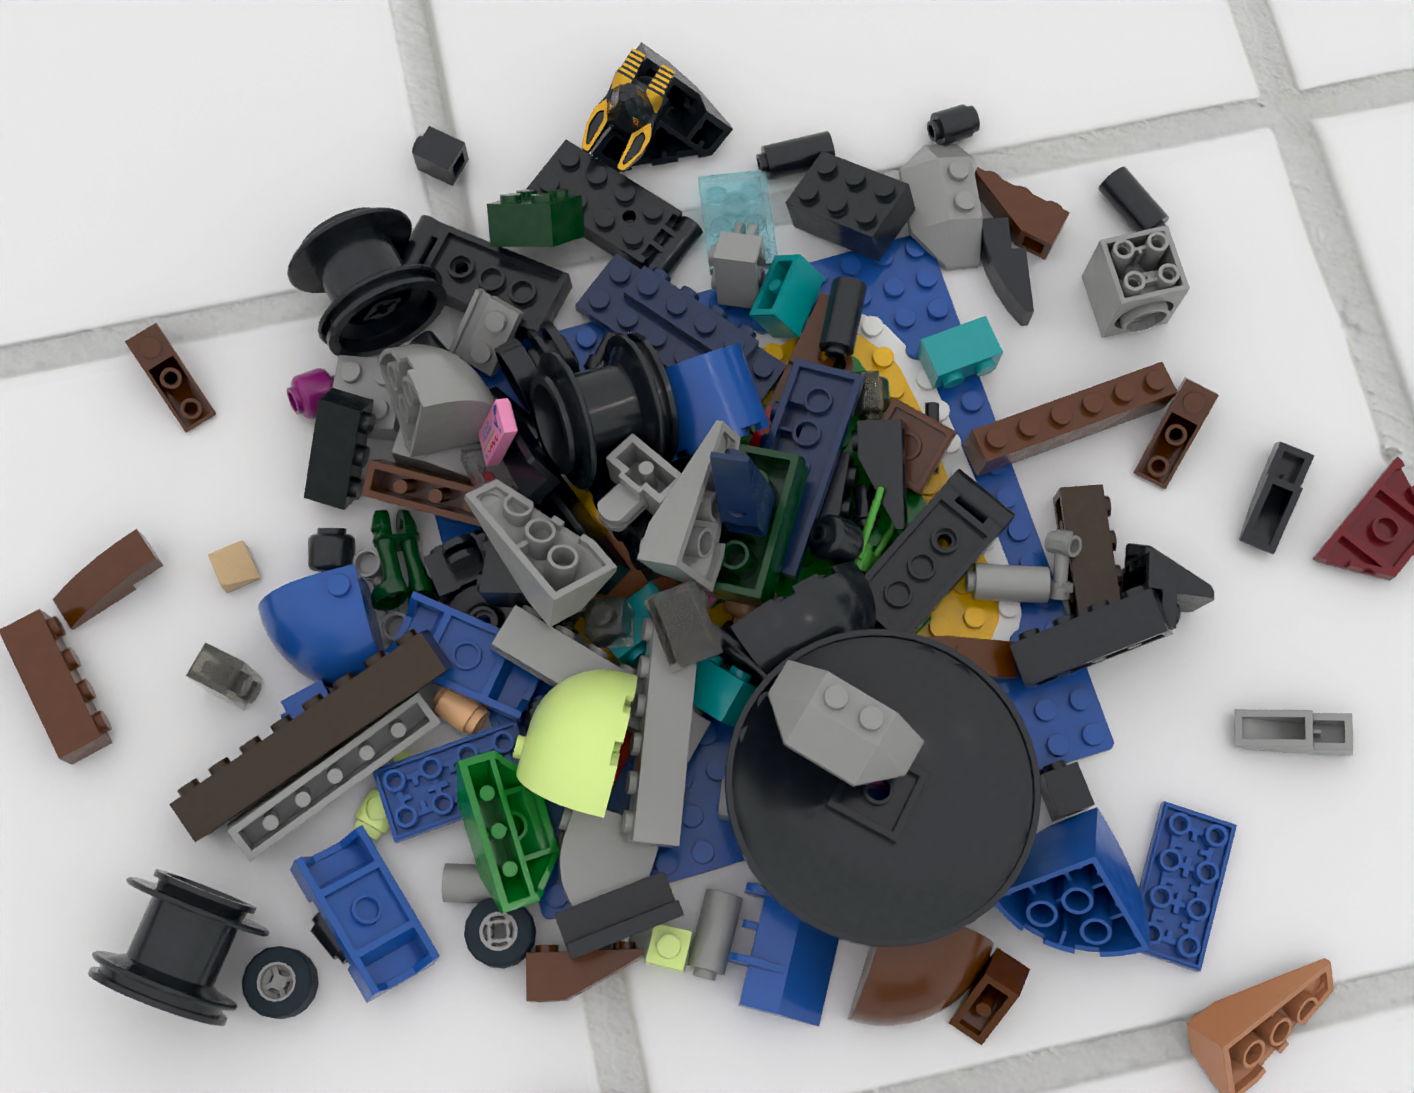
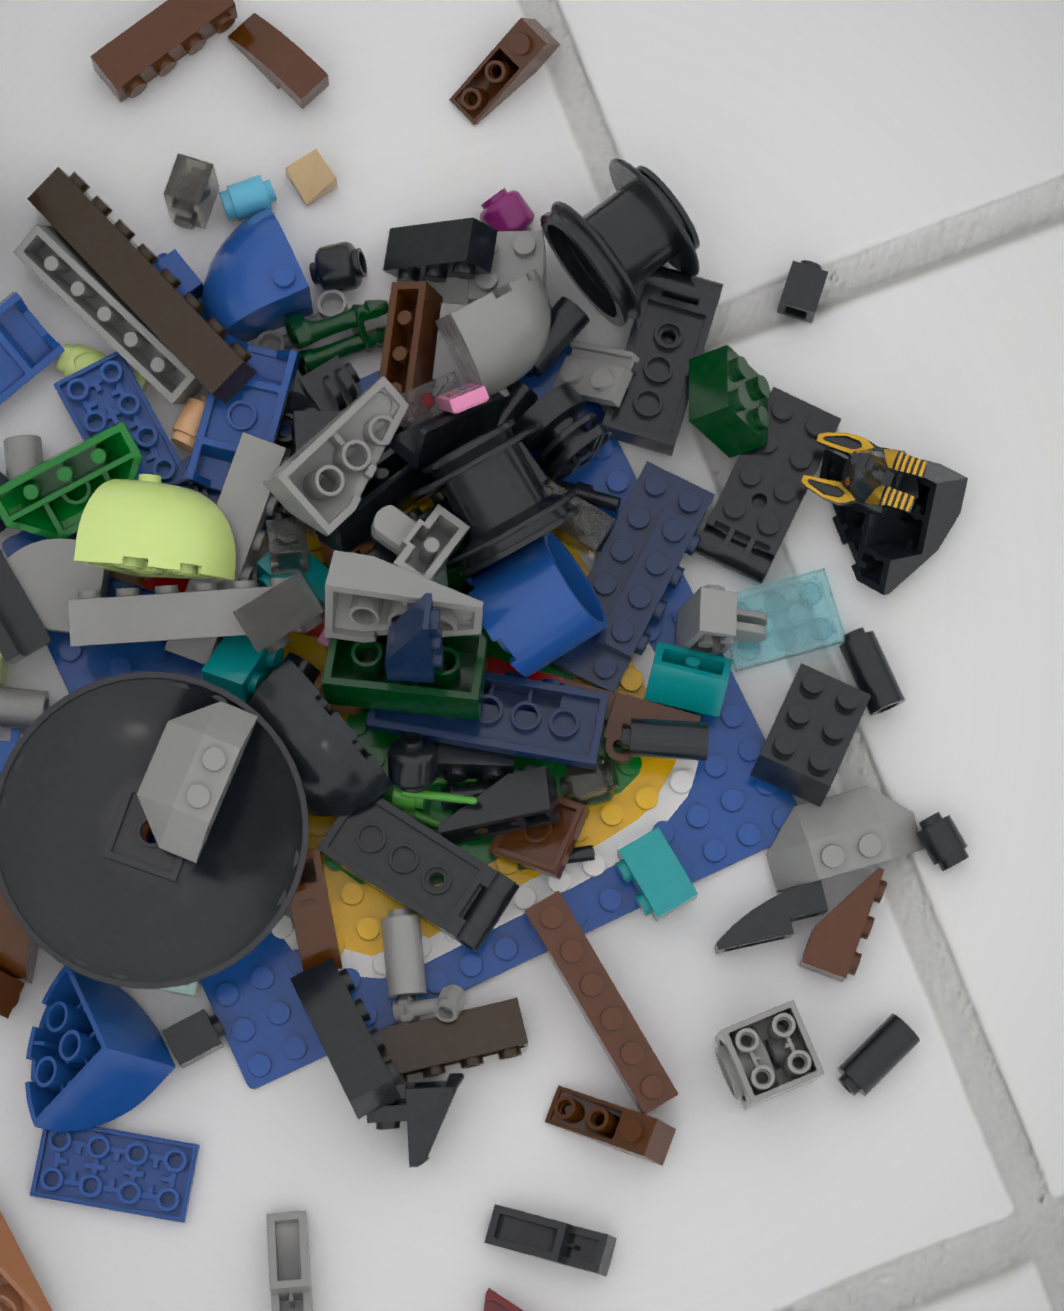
camera: 80 degrees right, 5 degrees up
(242, 629) = (247, 198): none -> medium azure brick

